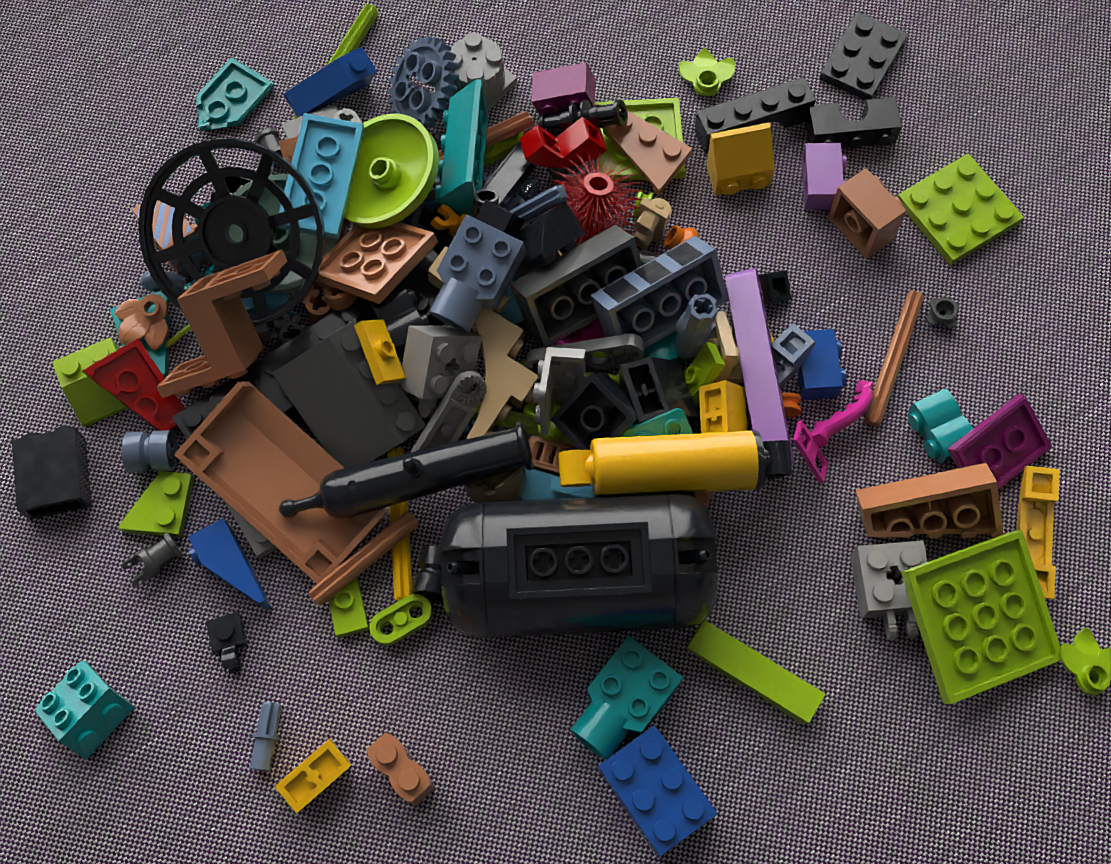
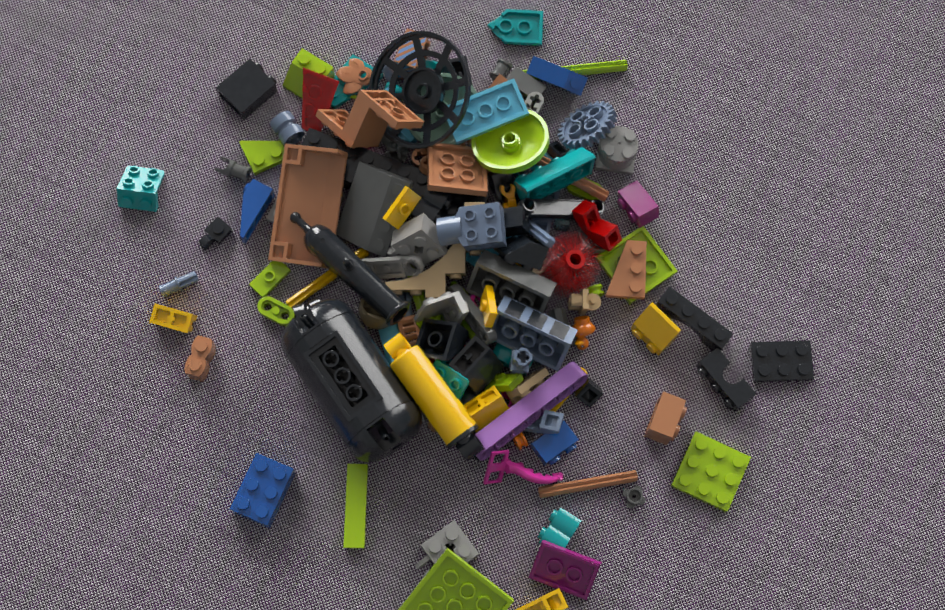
camera: 50 degrees right, 5 degrees up
(363, 558) = (295, 272): nougat axle -> none
(593, 322) = (488, 306): none -> yellow plate
(597, 115) = (626, 226): black piece -> none
(625, 698) = (301, 447): teal brick -> none
(707, 70) = (710, 275): lime plate -> none
(822, 174) = (680, 380): medium lavender brick -> none
(934, 504) = (504, 548): nougat wedge -> none

